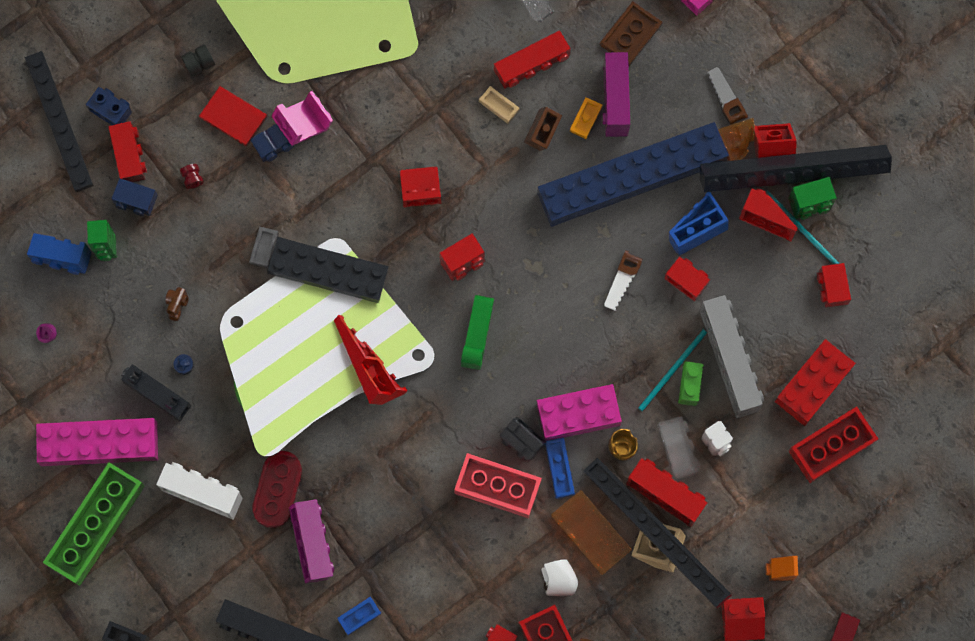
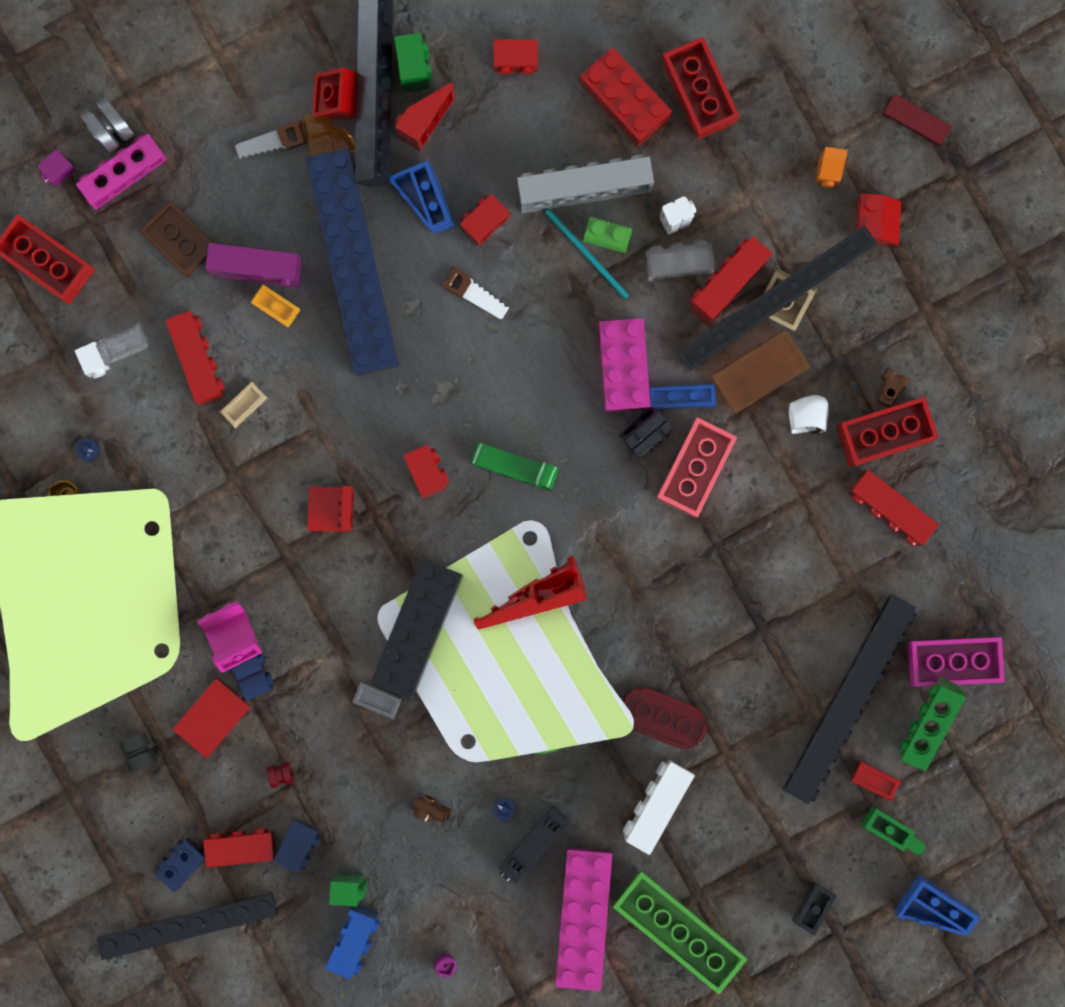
camera: 85 degrees left, 10 degrees up
(311, 541) = (731, 686): magenta brick -> none
(359, 616) = (820, 643): blue plate -> none
(543, 128) = (283, 357): reddish brown brick -> none
(623, 444) = (667, 321): pearl gold hair -> none
(805, 232) = (444, 81): teal axle -> none

